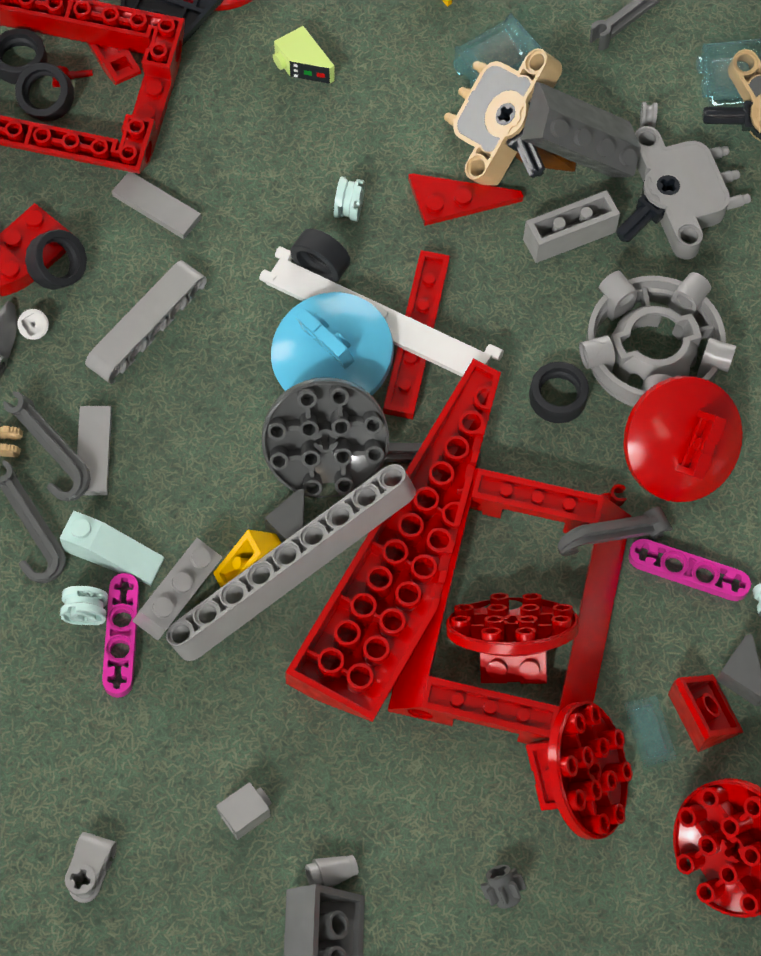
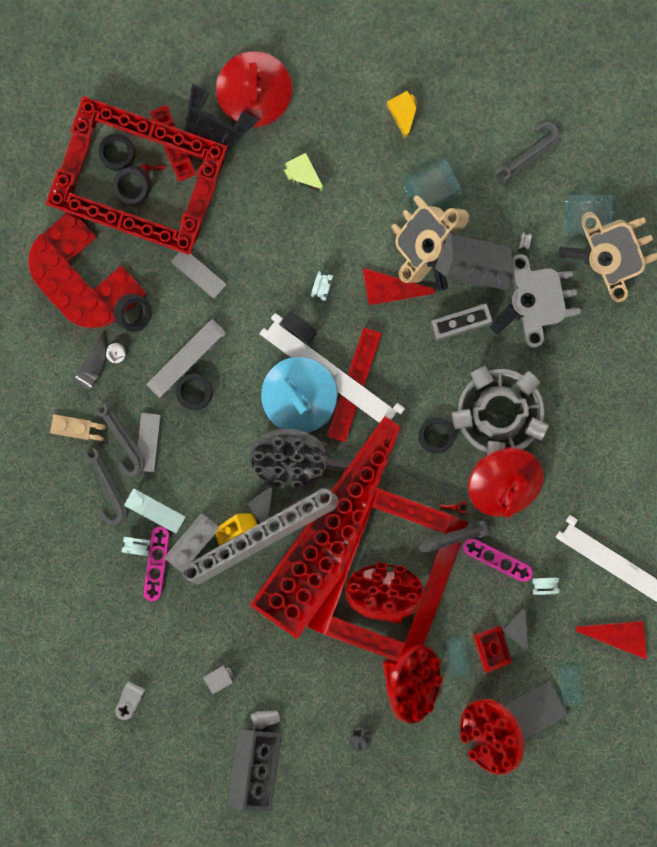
camera: 10 degrees right, 20 degrees up
(169, 387) = (194, 377): none -> black tyre

